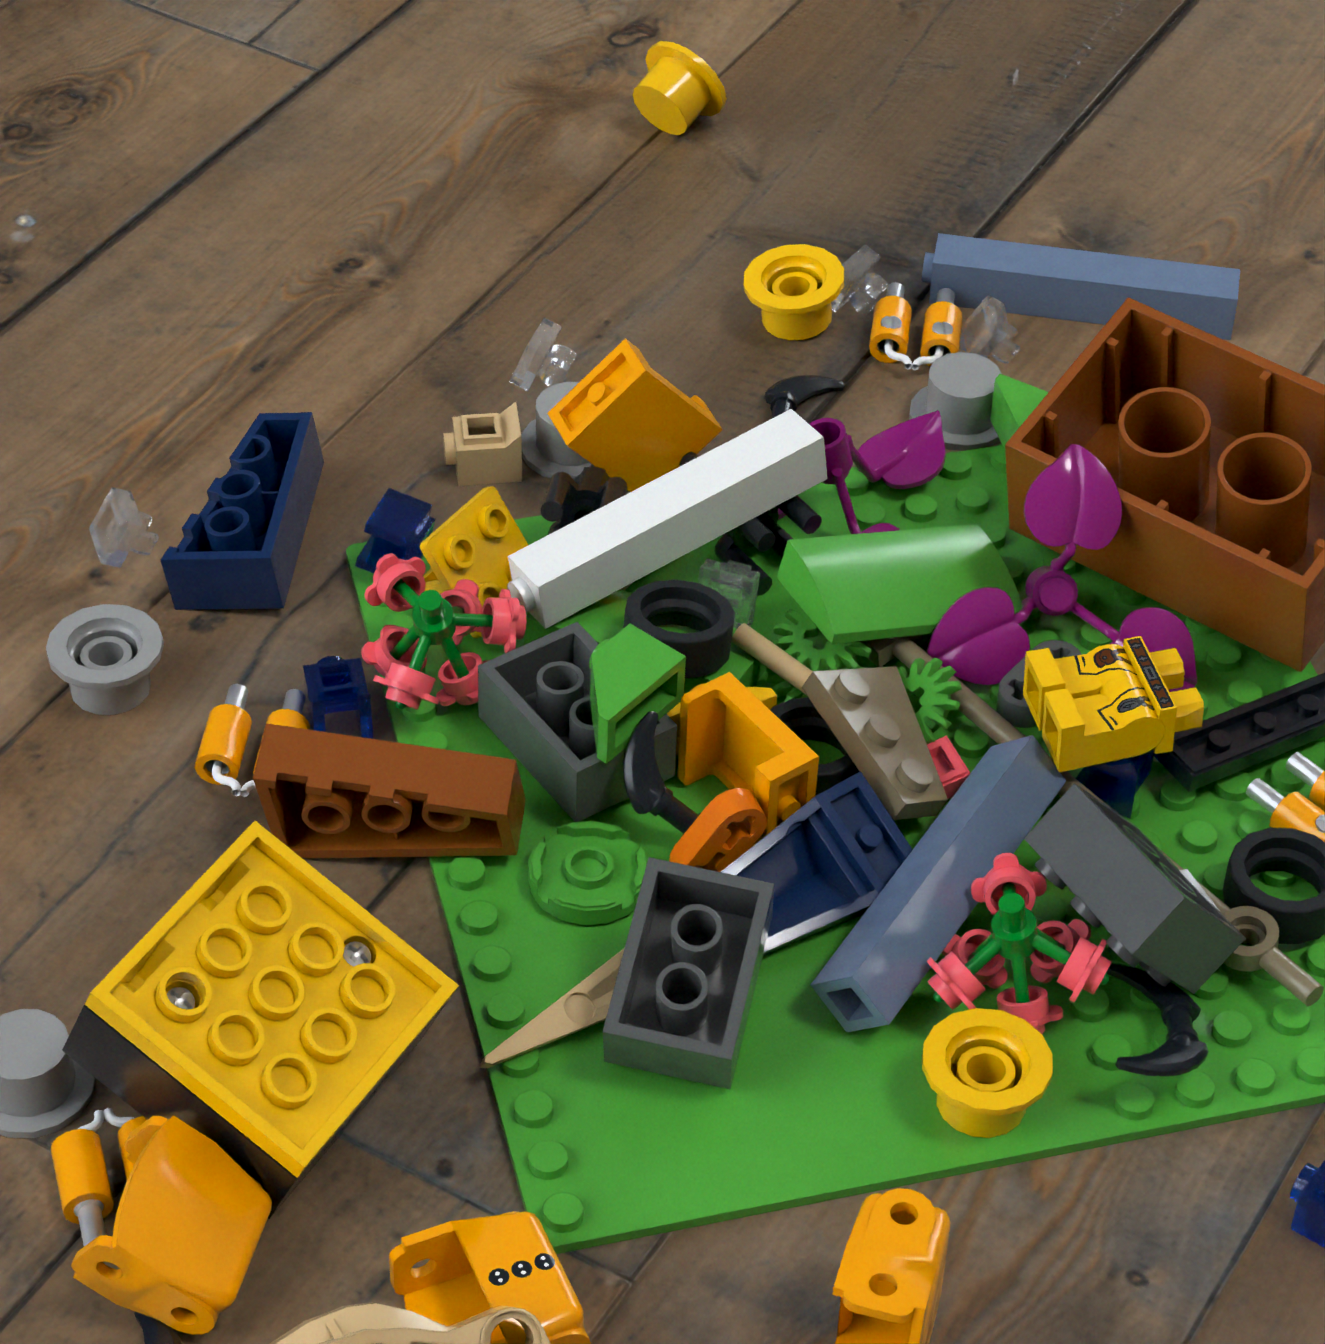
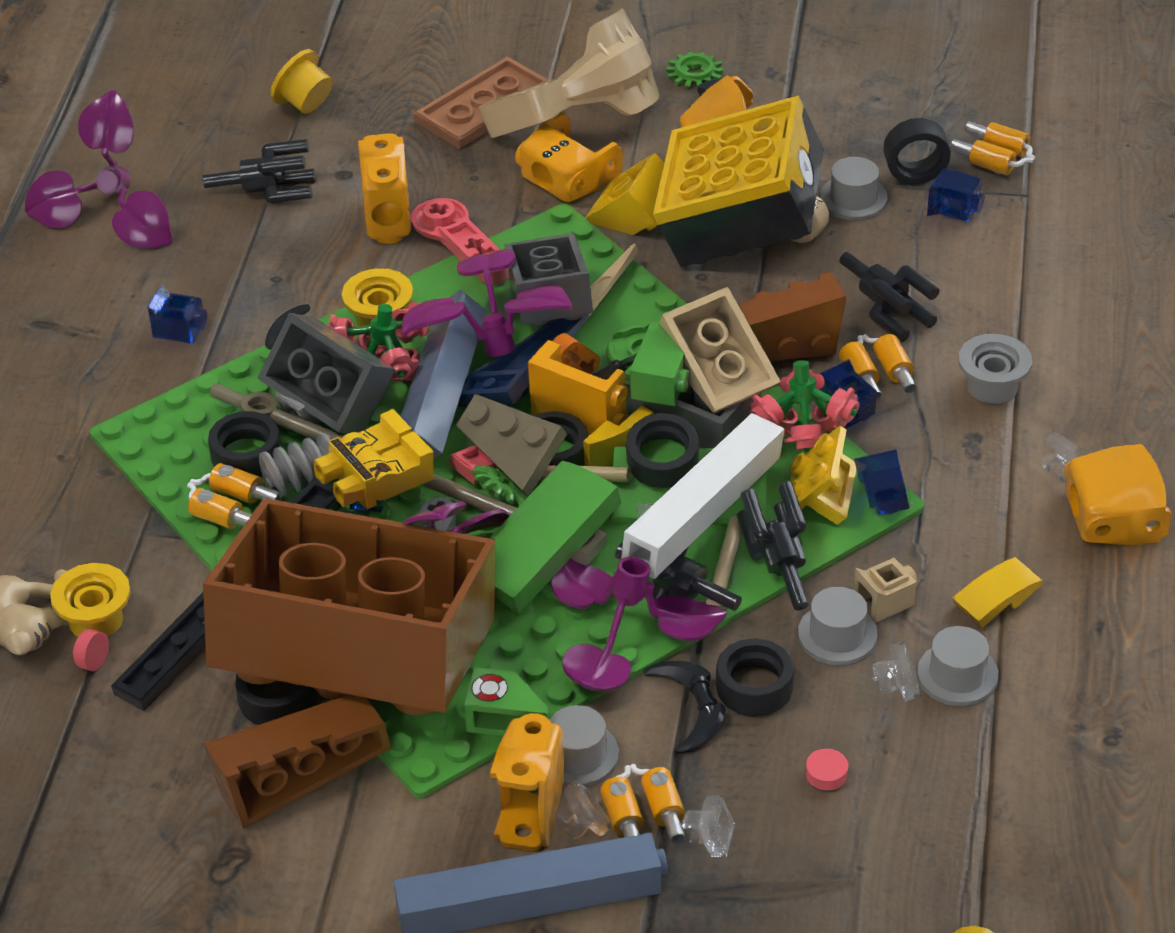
camera: 160 degrees right, 0 degrees up
(112, 438) = (1117, 495): none -> light orange piece
(148, 830) = (891, 294): none -> black plant
(254, 523) = (984, 475): dark blue wedge -> none
(351, 407) = (996, 589): none -> yellow slope
(422, 1170) = (629, 198): none -> yellow slope
(465, 354) = (958, 667): none -> light grey piece
(530, 691) = (719, 350): none -> tan slope
(632, 419) = (768, 573): light orange panel -> none
(688, 311) = (826, 769): none -> coral tile
(723, 382) = (756, 700): none -> black tyre
(775, 1216) = (450, 223): none -> coral beam
(792, 992) = (495, 330): none -> magenta plant
(794, 289) = (749, 779): yellow piece -> none
(1046, 318) = (528, 760): none -> light orange piece
(1205, 803) = (294, 464): none -> light grey piece

